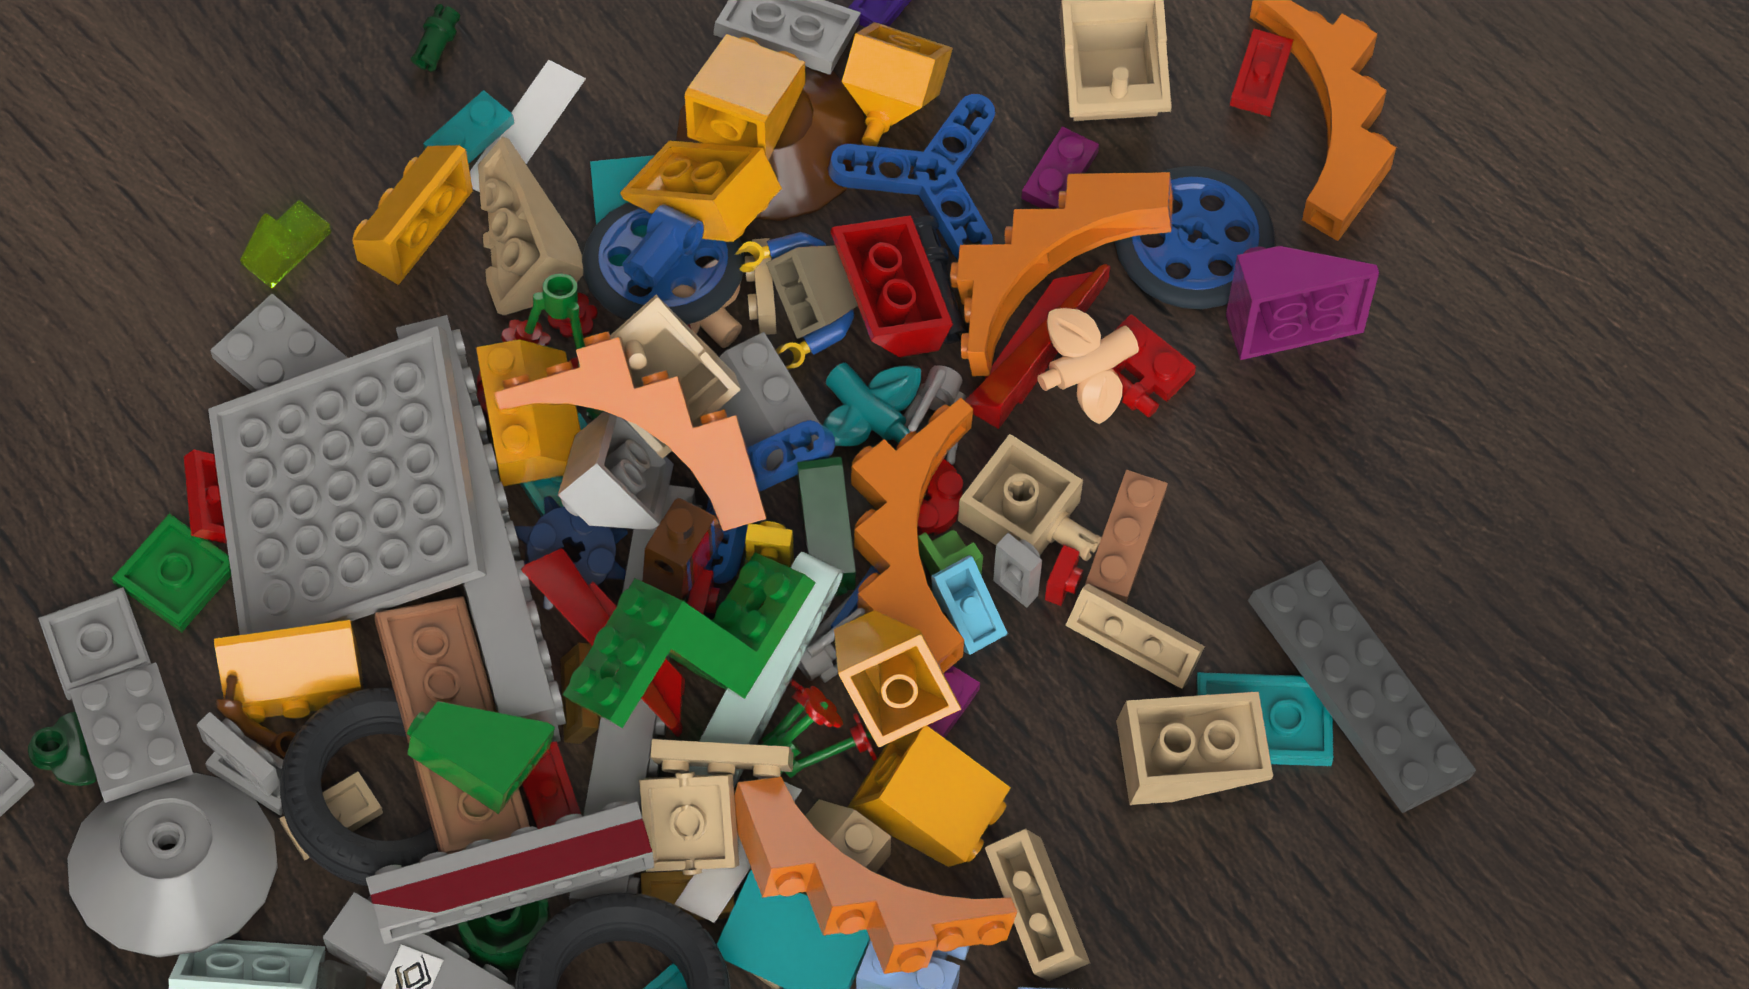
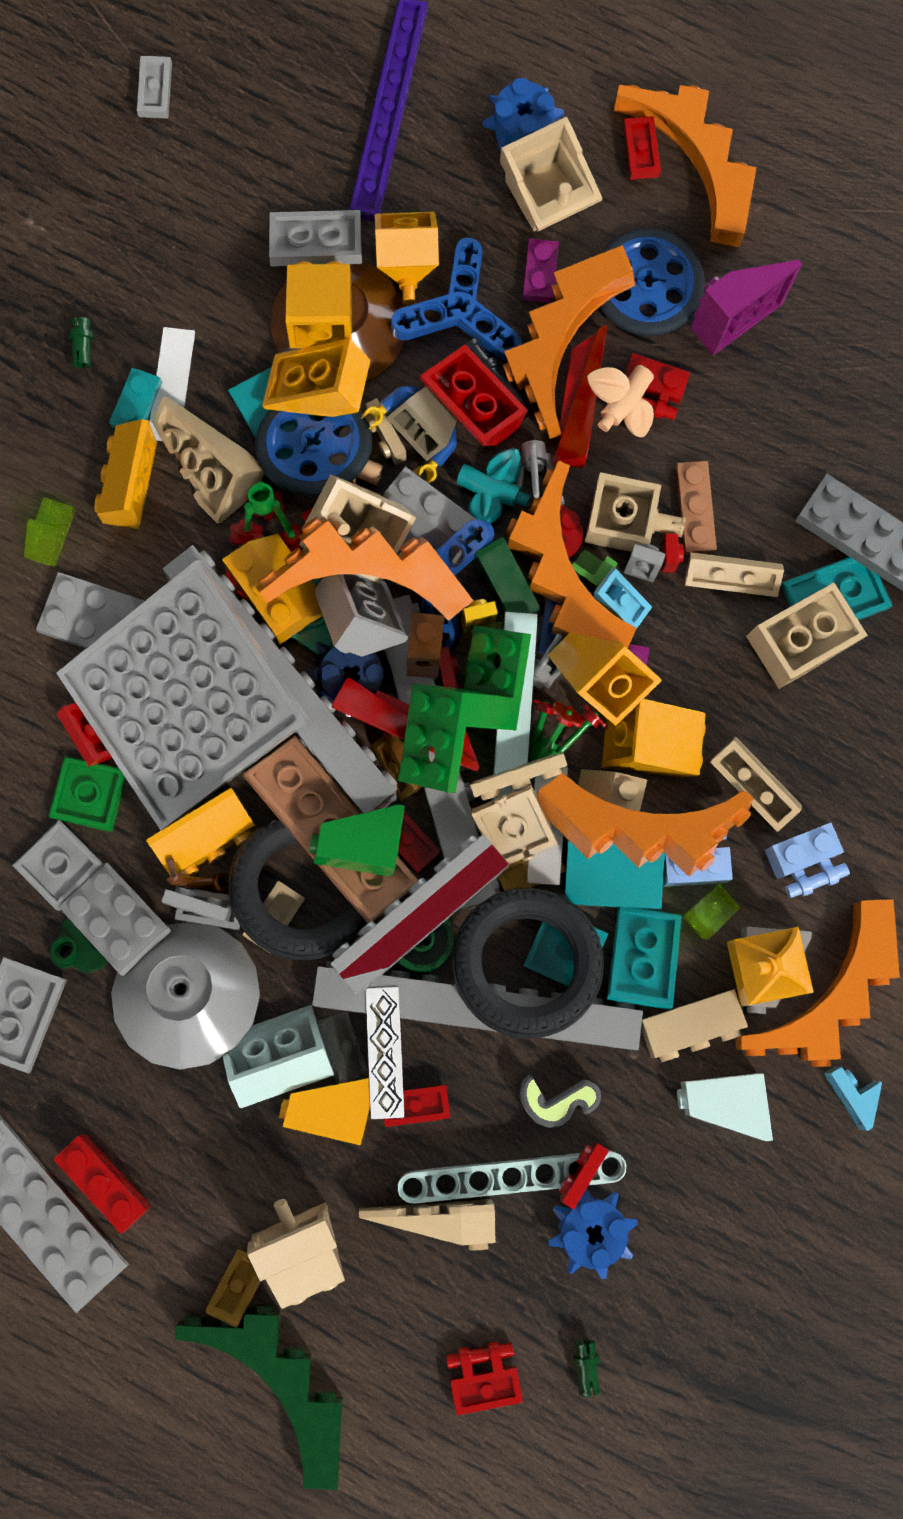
camera: 30 degrees left, 15 degrees up
(667, 237) = (313, 427): blue piece -> none

